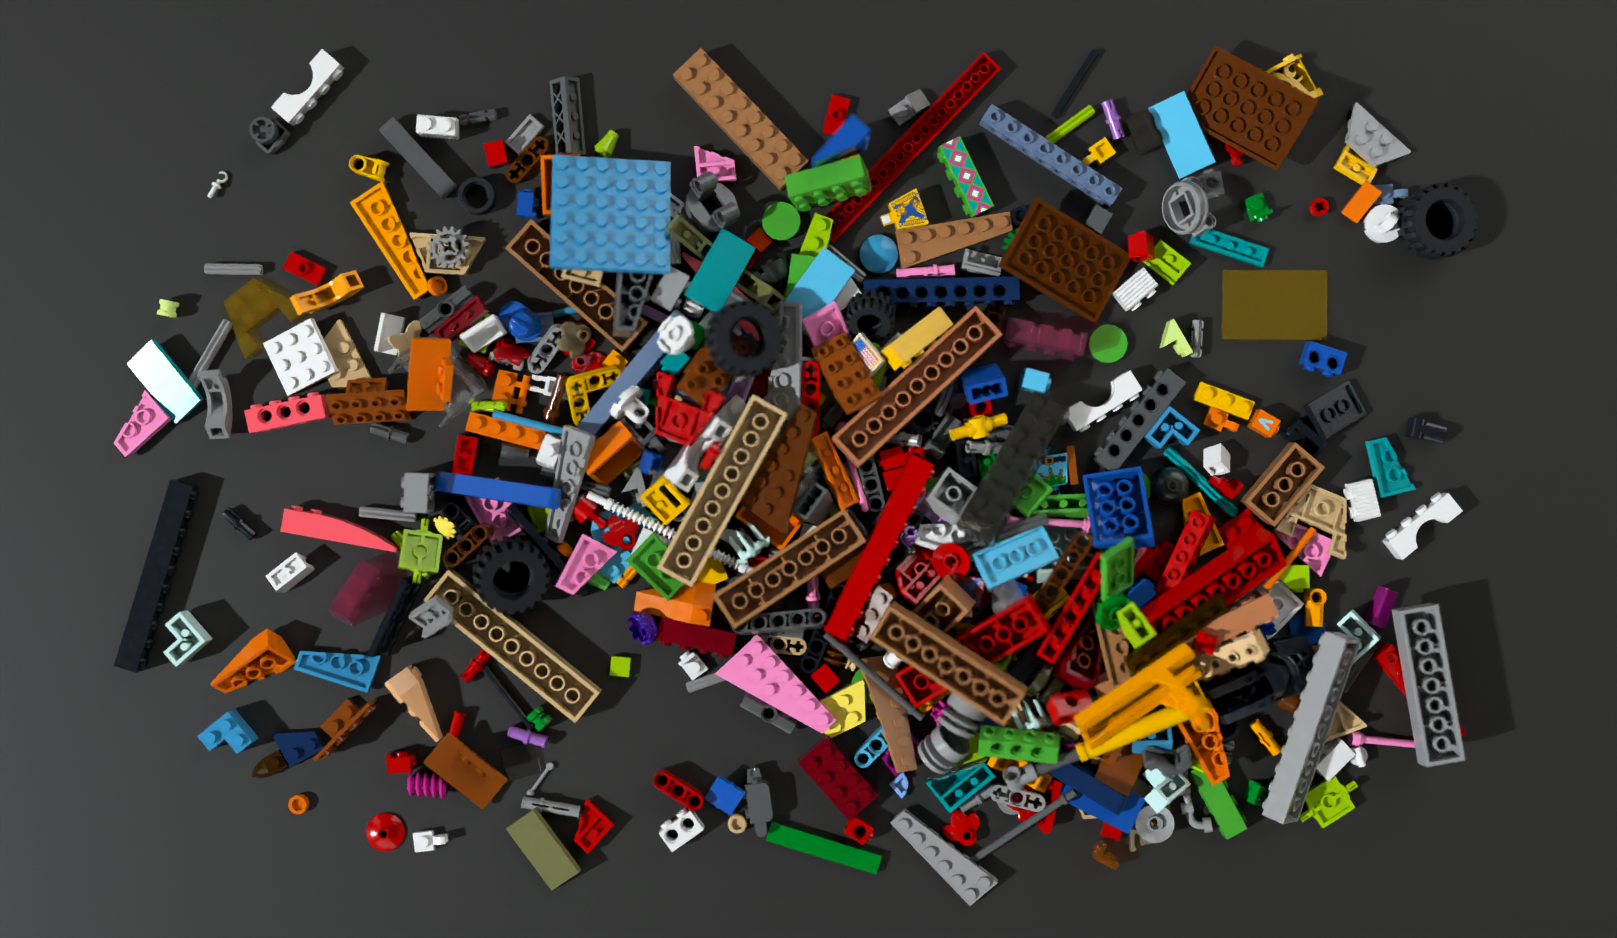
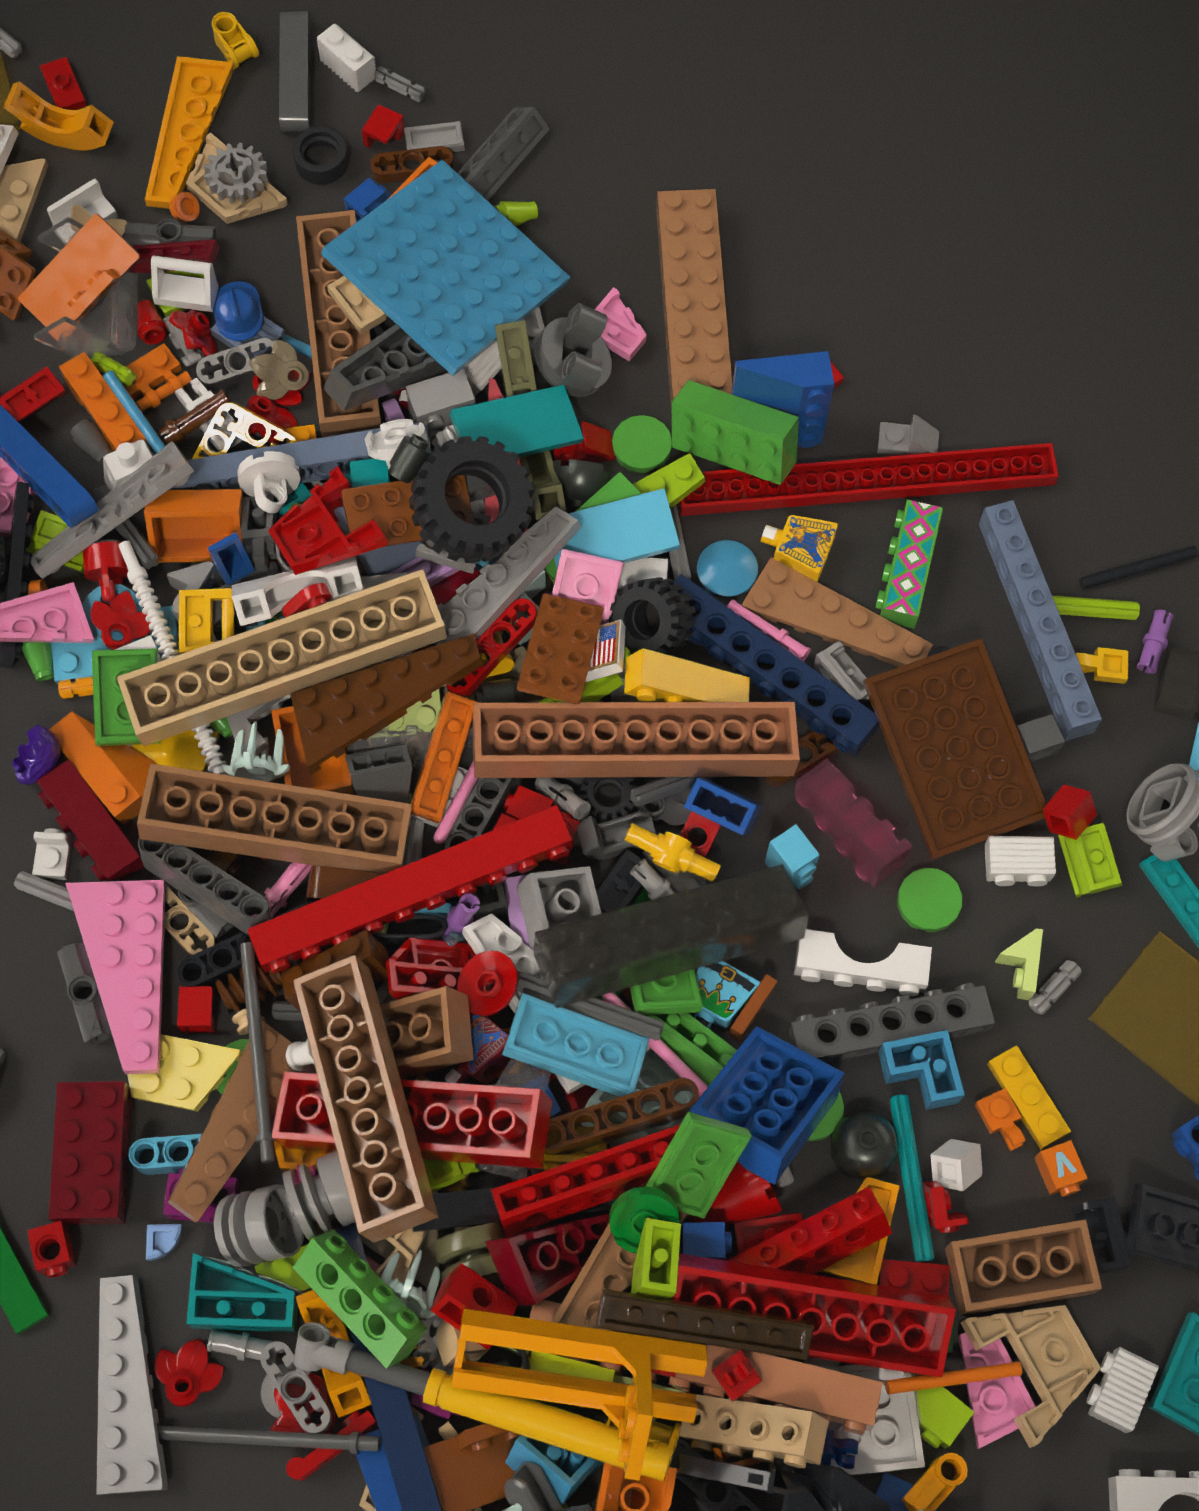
camera: 40 degrees right, 20 degrees down
(696, 344) = (409, 458): none -> pearl dark grey brick

